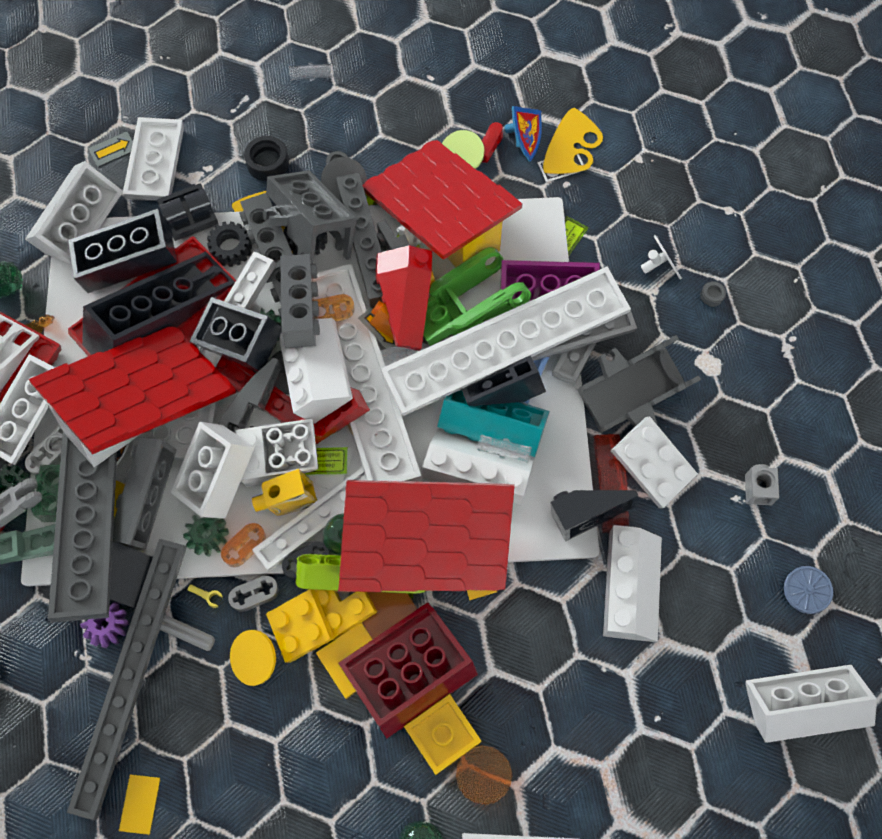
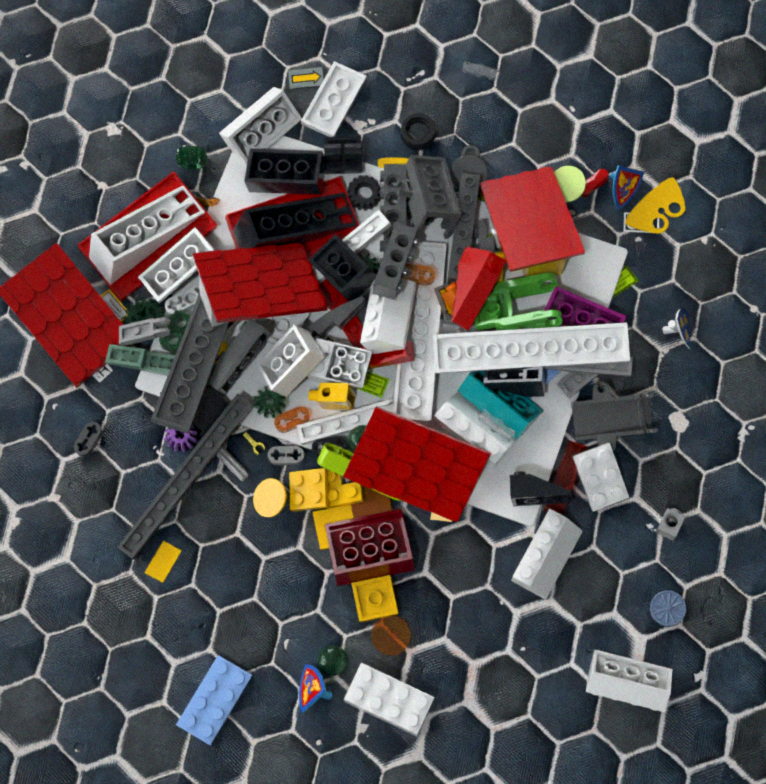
camera: 25 degrees right, 5 degrees up
(713, 294) = (707, 370): dark grey tile -> none

